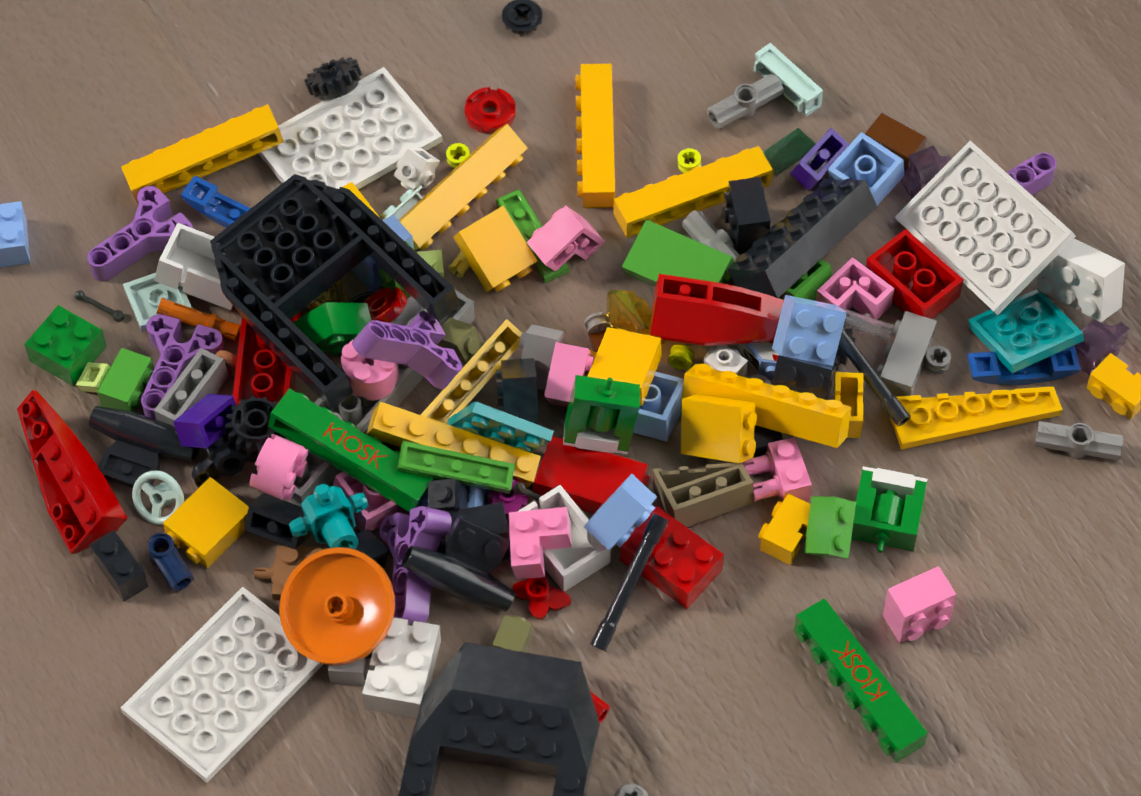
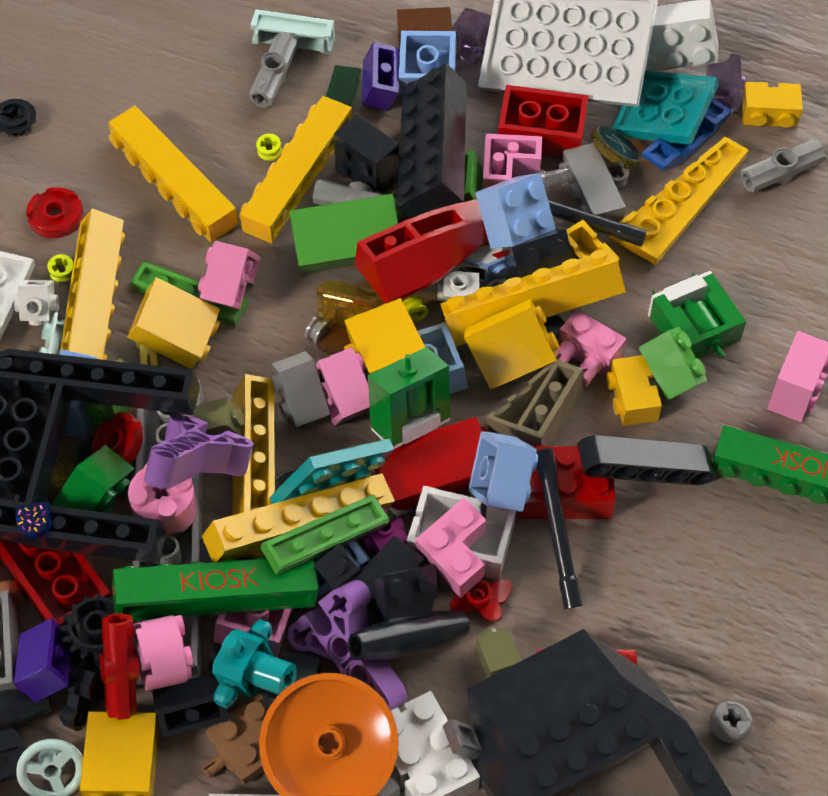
camera: 40 degrees left, 0 degrees up
(244, 457) = (119, 666): none -> red piece
(268, 319) = (34, 519): none -> clear blue tile
(428, 671) = (462, 739): none -> flat silver tile
(518, 389) = (311, 426): black brick -> none
(737, 581) = (645, 460): none -> beam
(953, 335) = (615, 146): none -> tile

